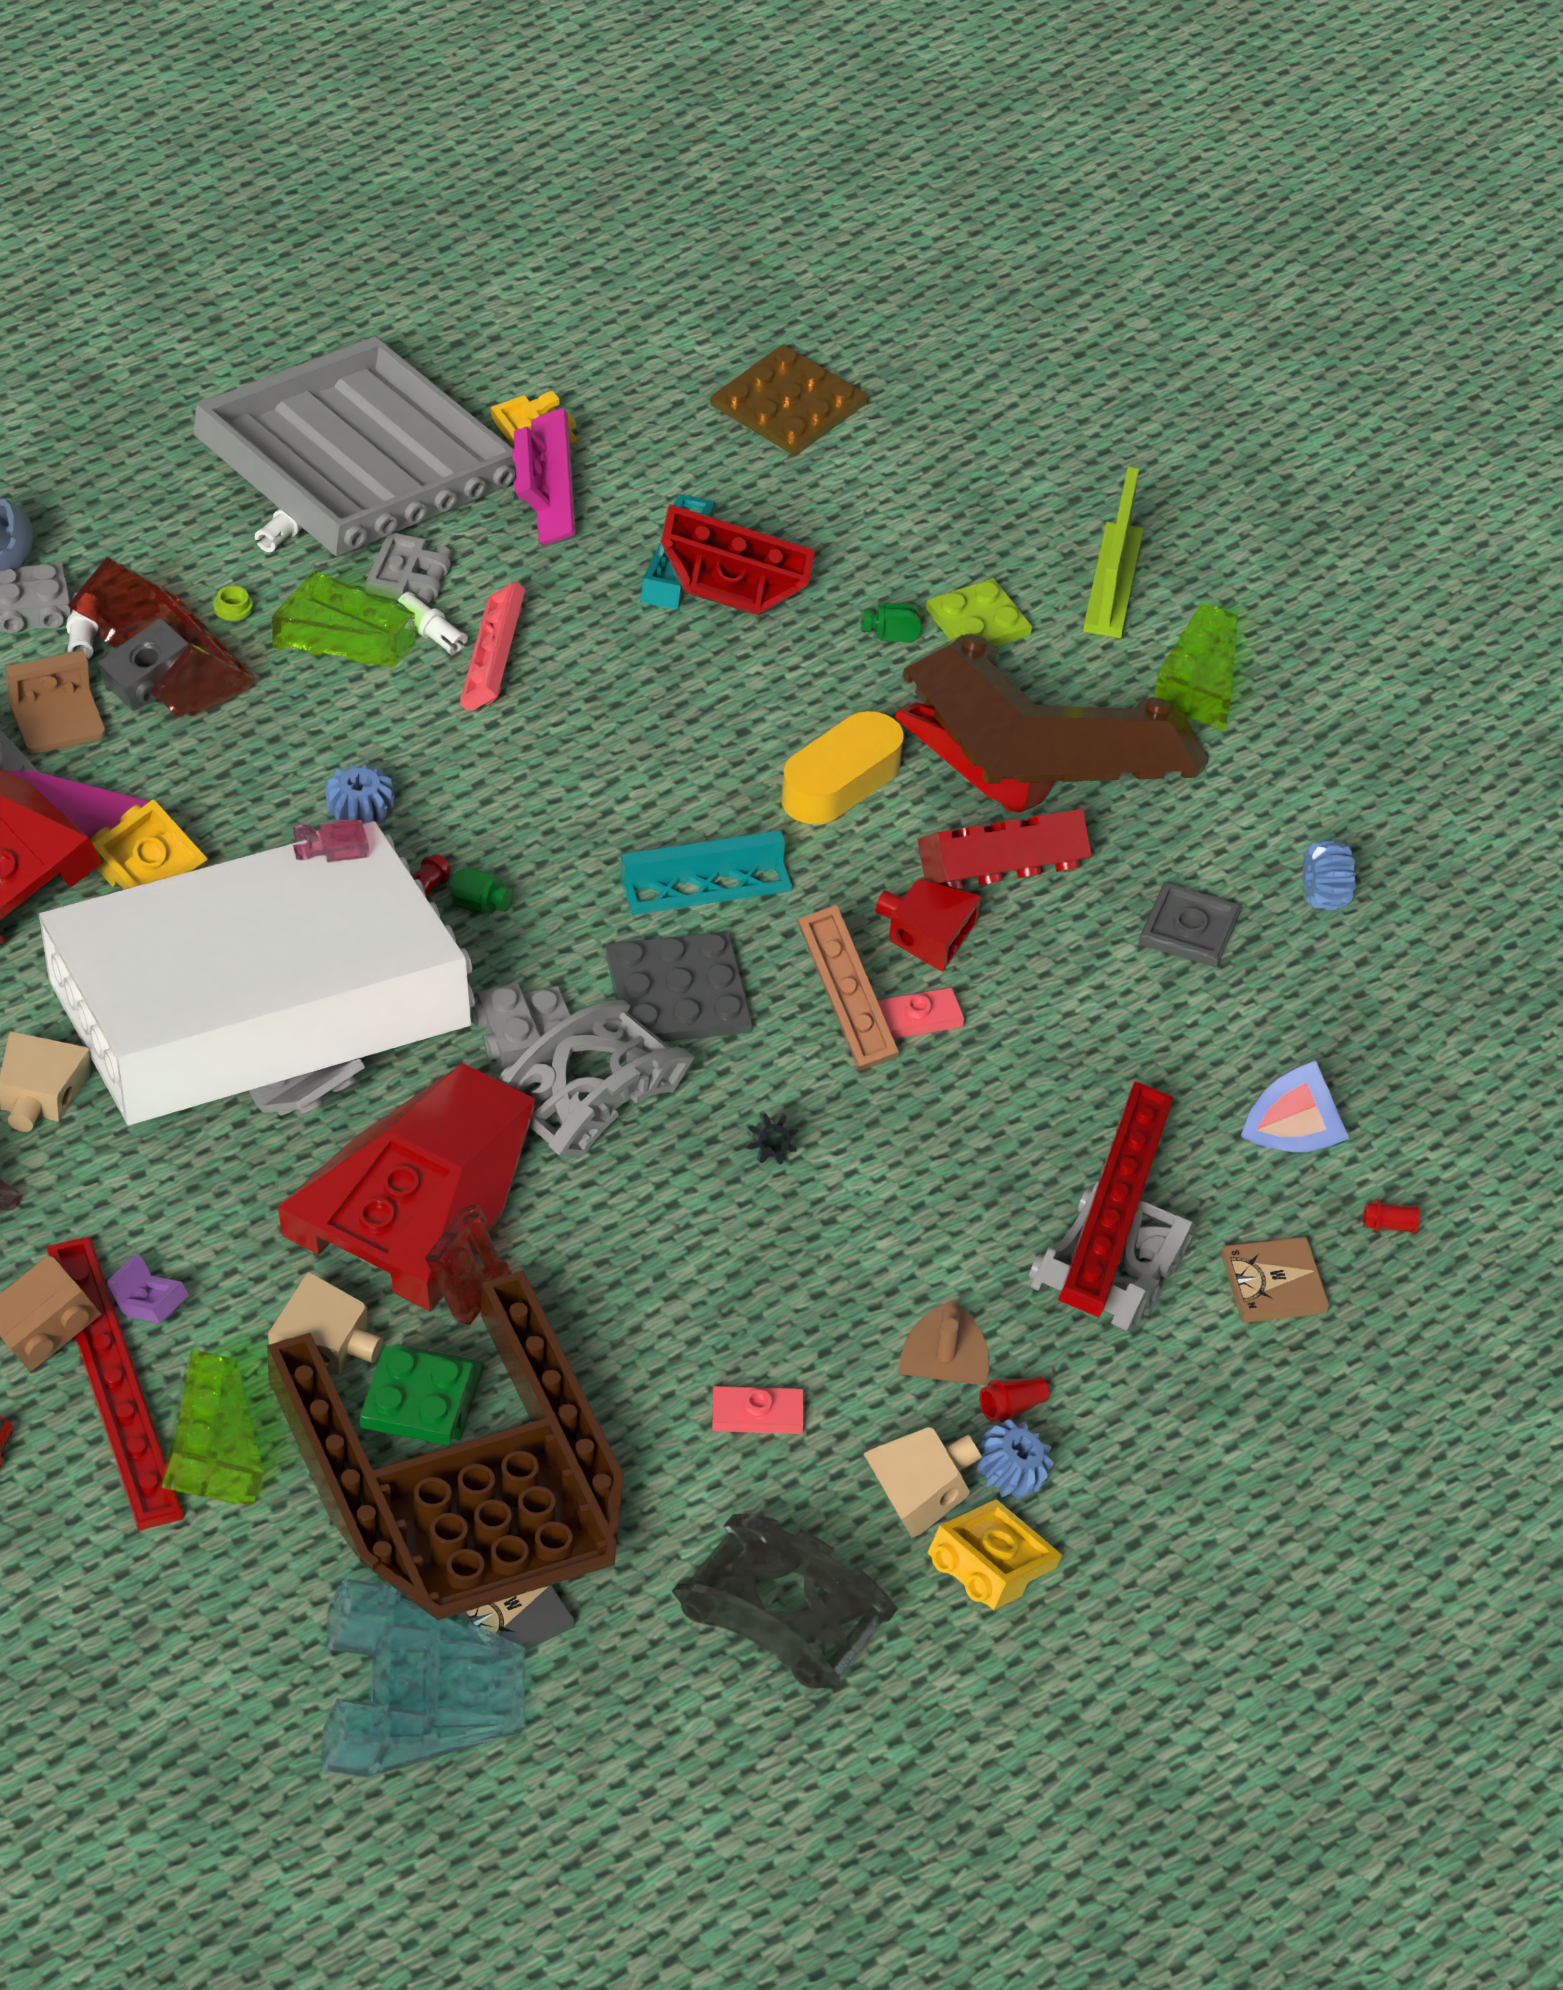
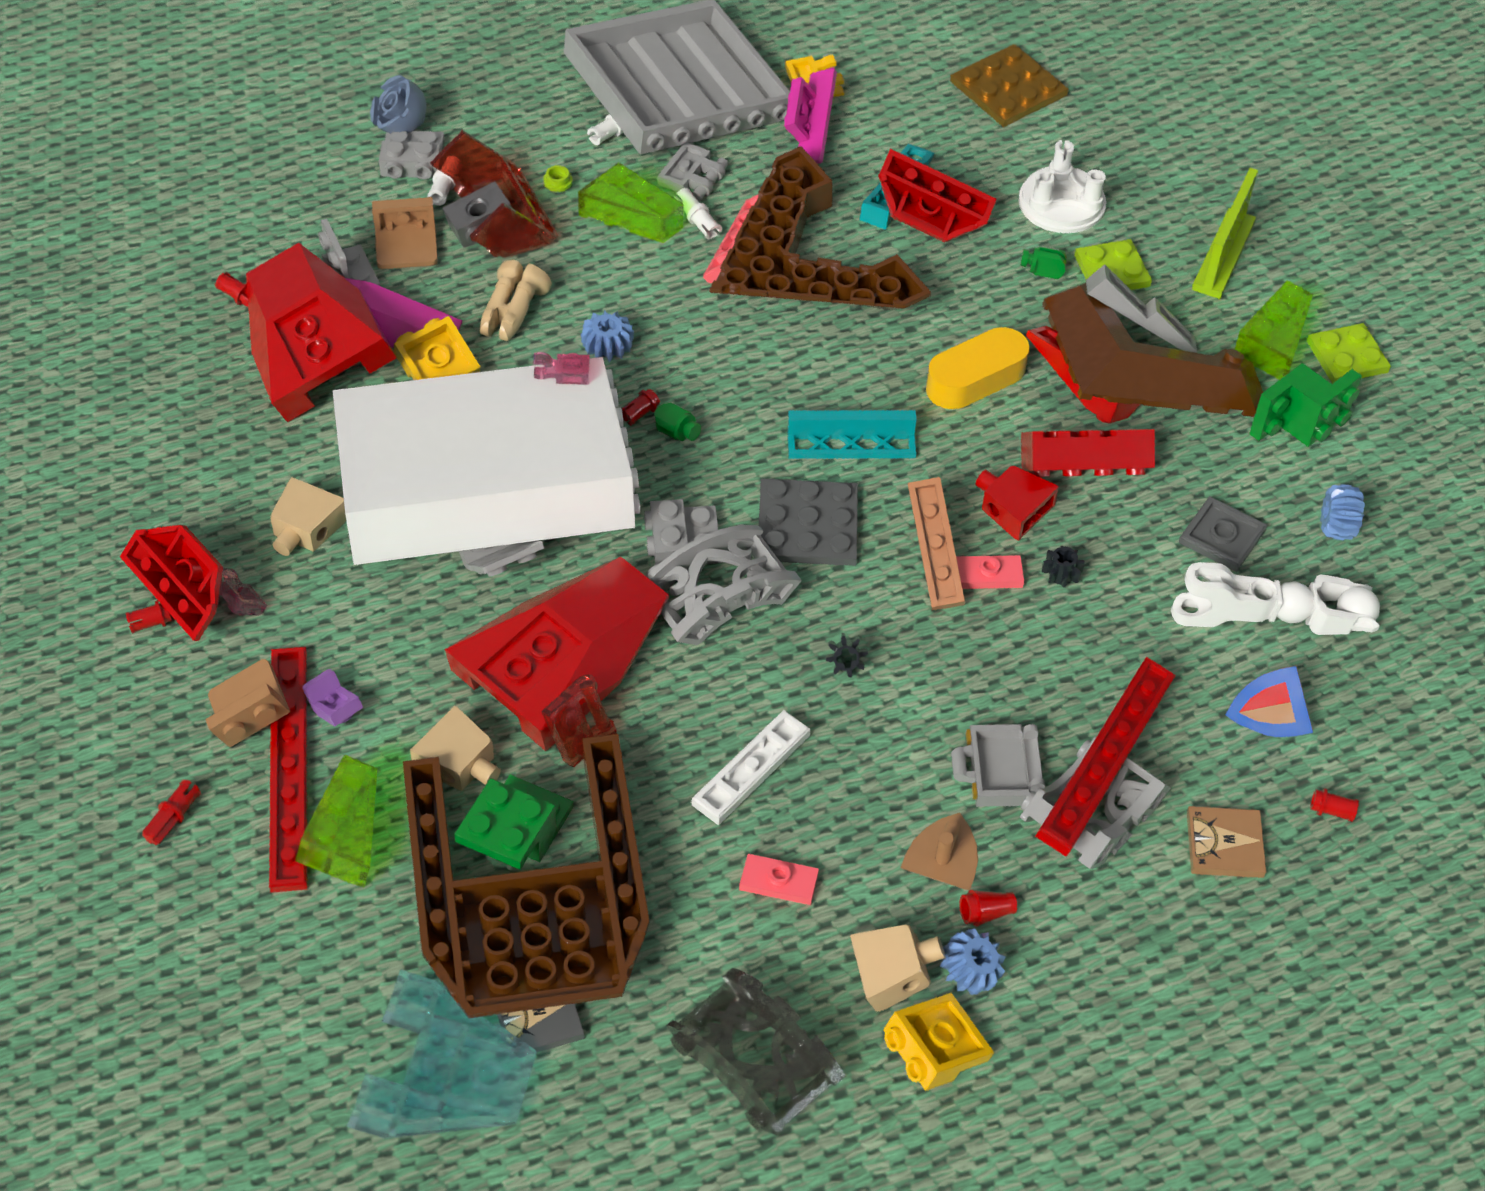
camera: 15 degrees right, 5 degrees up
(227, 788) = (511, 315): none -> tan piece
(533, 657) = (767, 243): none -> reddish brown wedge
(689, 1288) = (750, 767): none -> white plate
(895, 535) = (1063, 196): none -> white piece
(990, 1234) = (1002, 762): none -> light grey piece
(1007, 991) = (1063, 566): none -> black gear
(1044, 670) = (1153, 316): none -> light grey slope
(1251, 993) = (1257, 599): none -> white piece
(1258, 753) = (1305, 405): none -> green bracket
(1293, 683) = (1348, 349): none -> lime plate

